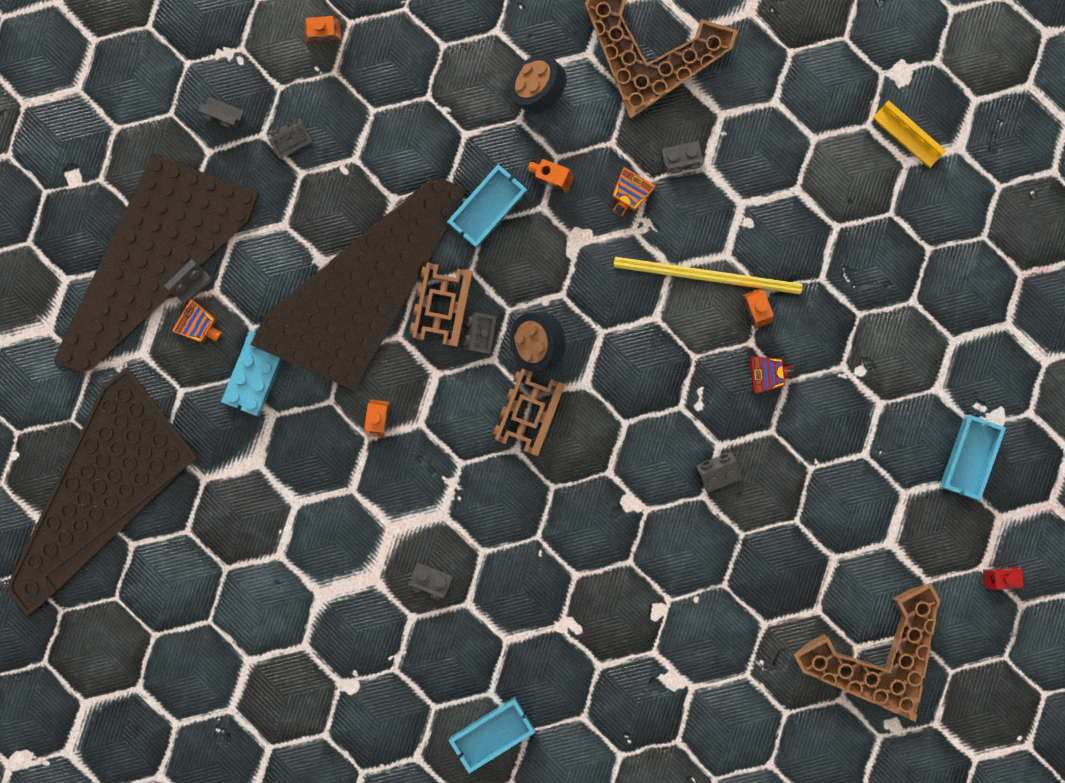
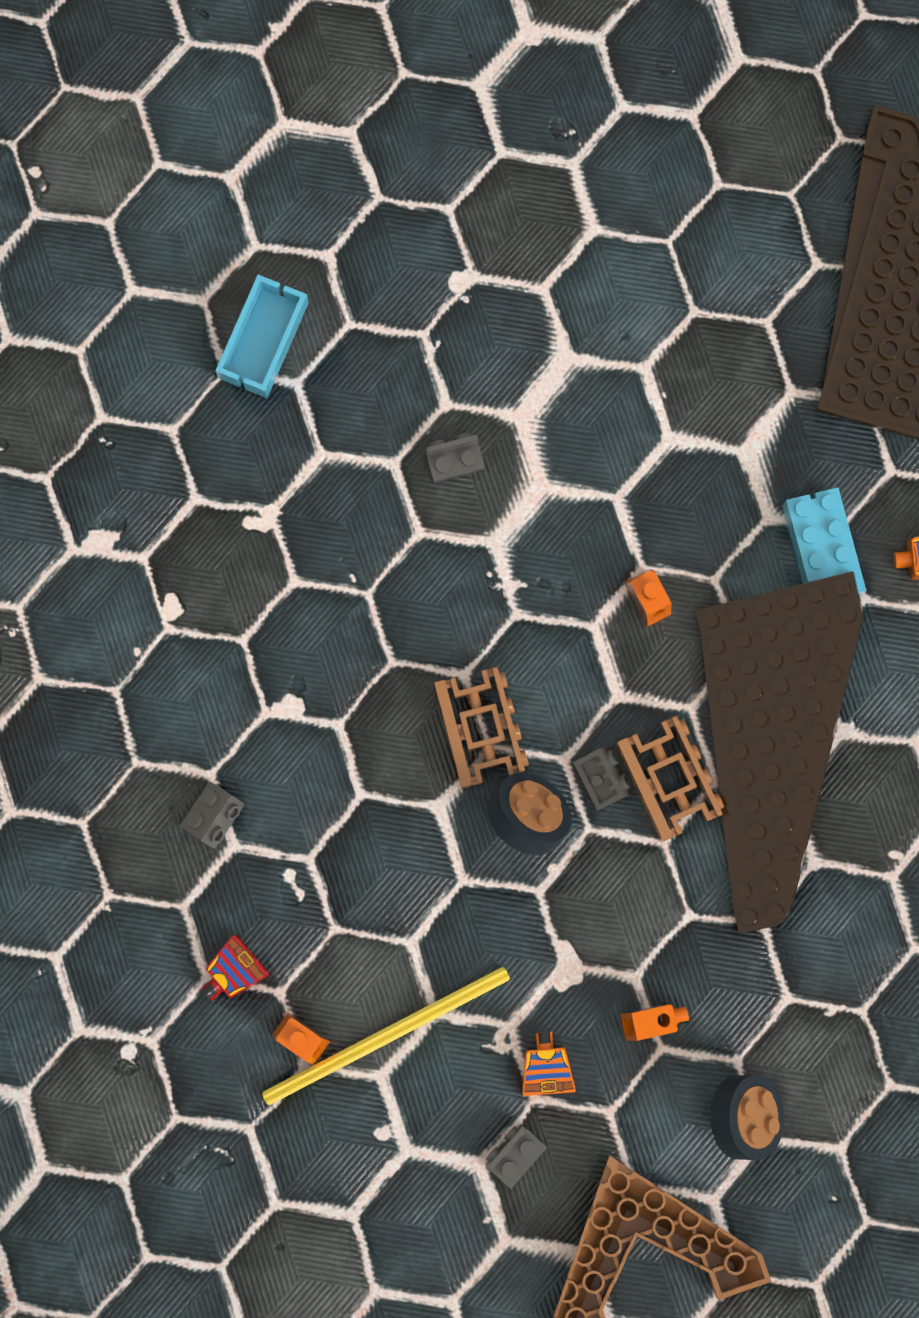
camera: 140 degrees right, 5 degrees down
(487, 206) = (700, 929): medium azure piece -> none

